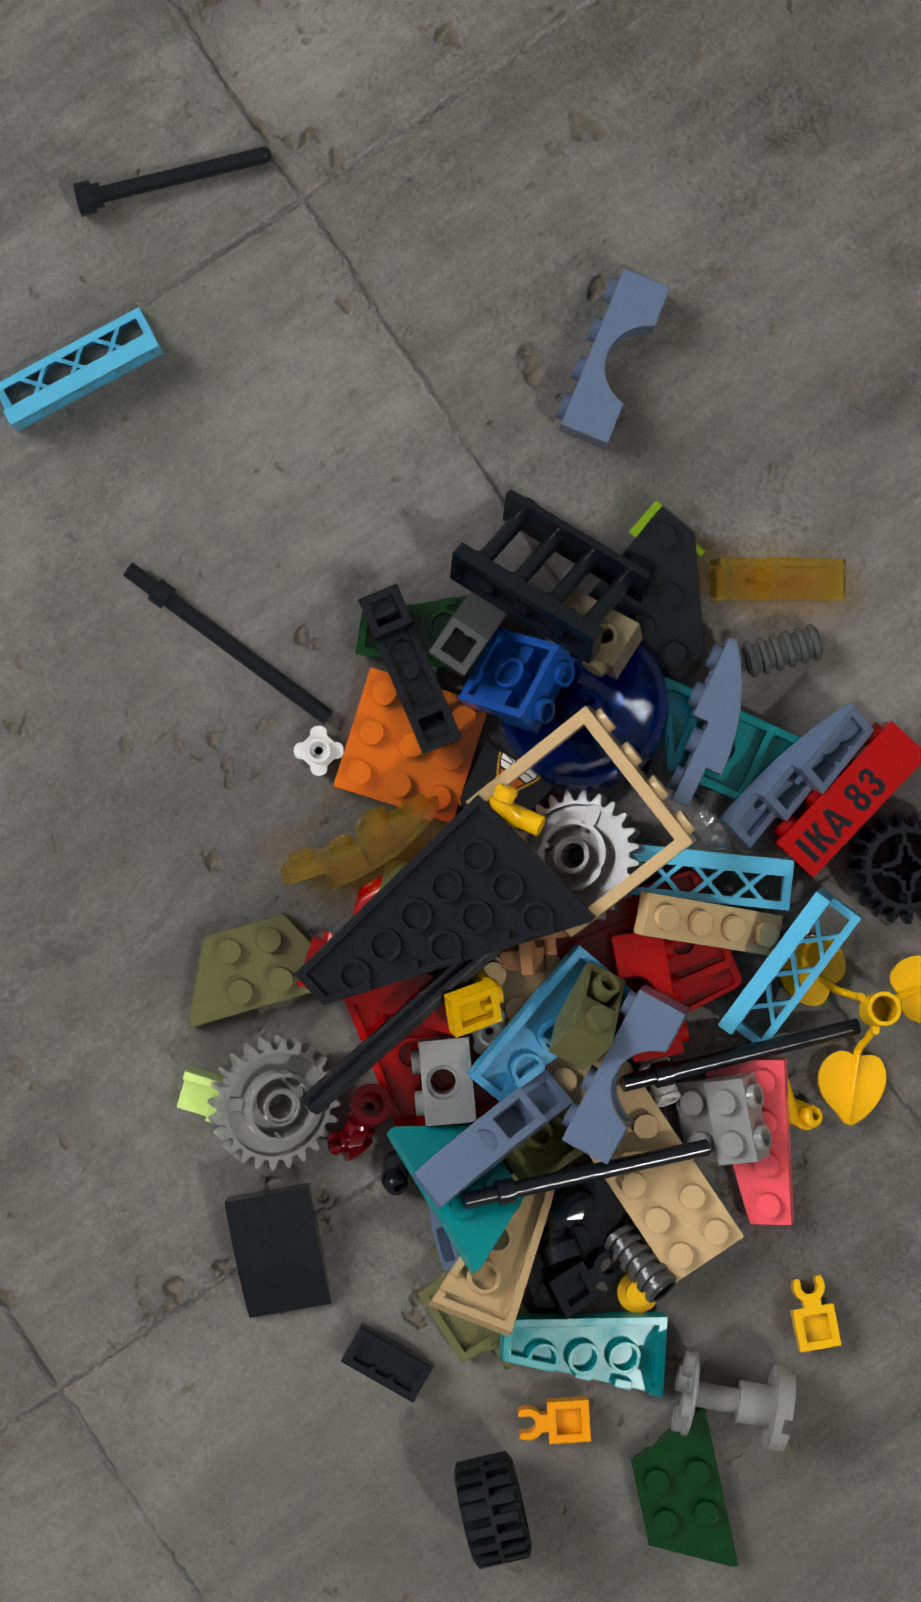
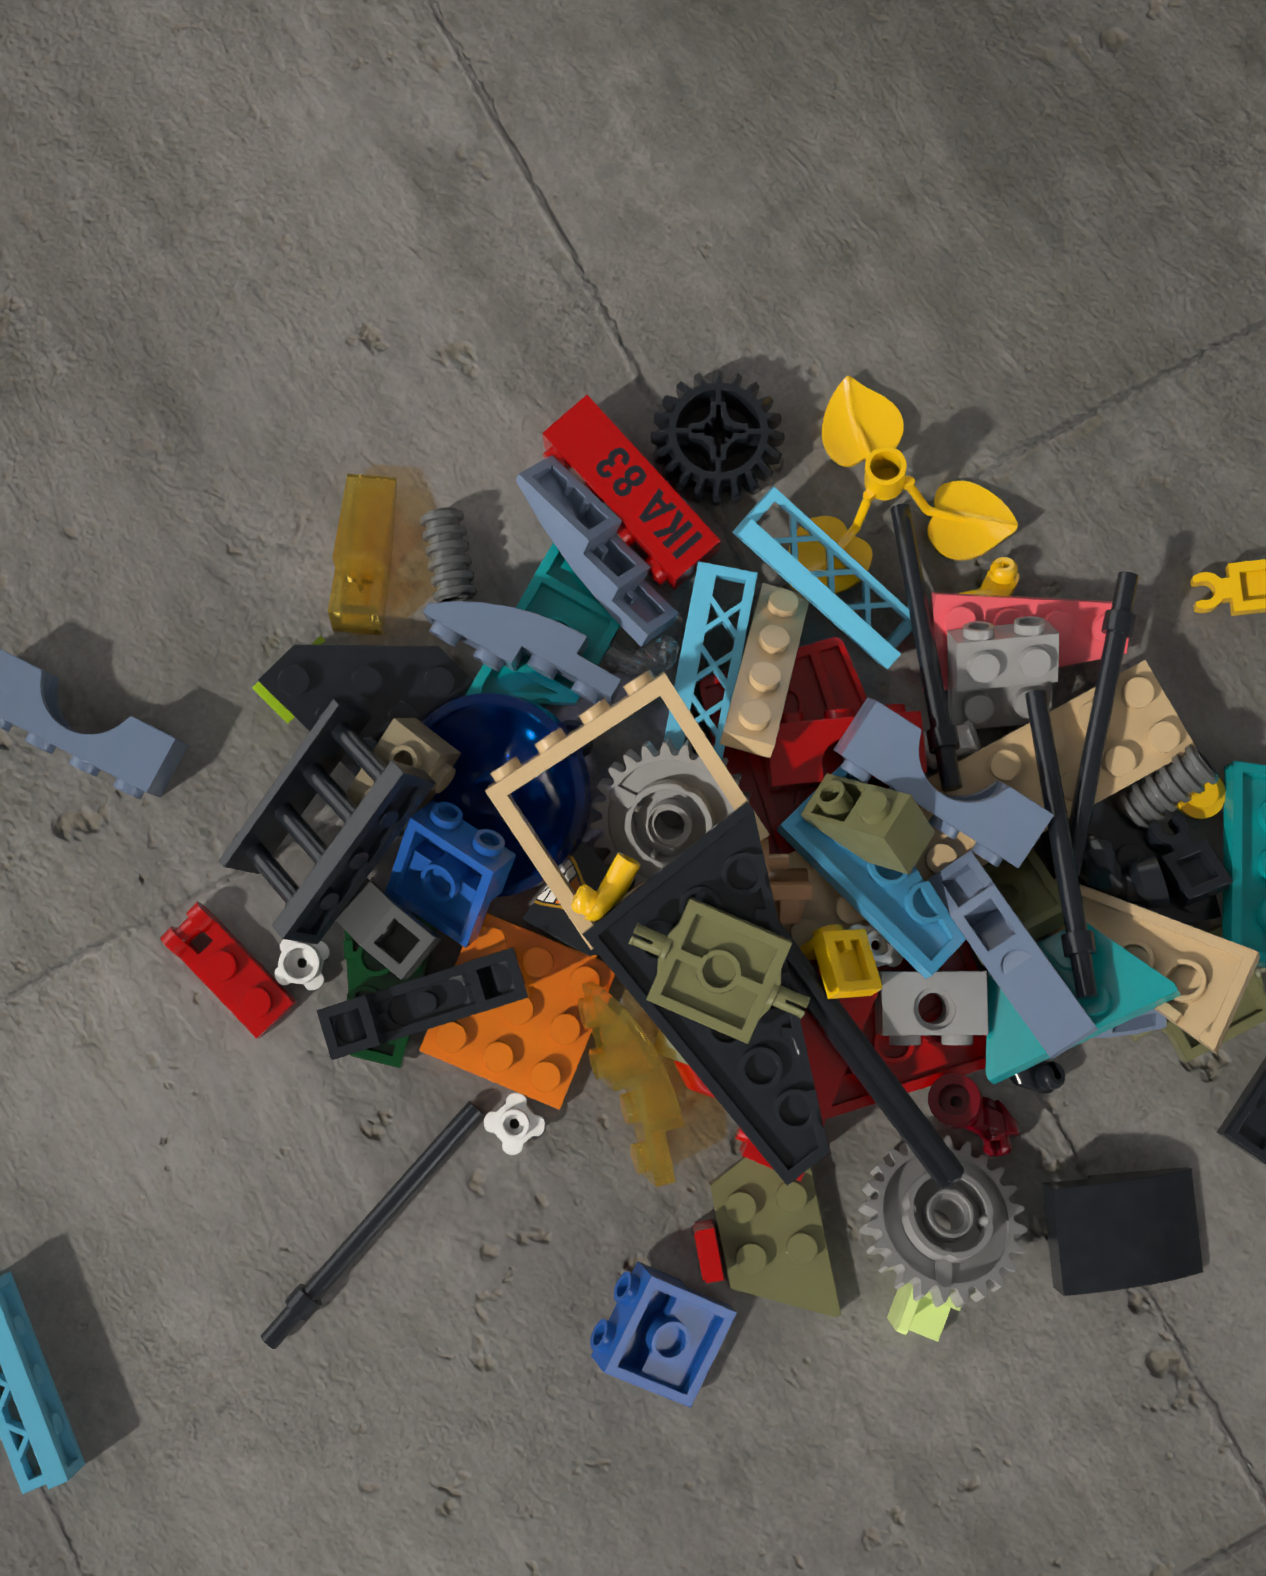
camera: 85 degrees left, 5 degrees down
(163, 884) = (660, 1334): none -> blue plate
(231, 916) = (708, 1251): none -> red tile
(421, 505) = (229, 971): none -> red plate
(424, 555) = (311, 974): none -> white plate
(459, 905) = (719, 970): none -> olive plate
(769, 1210) = (1118, 626): none -> black bar

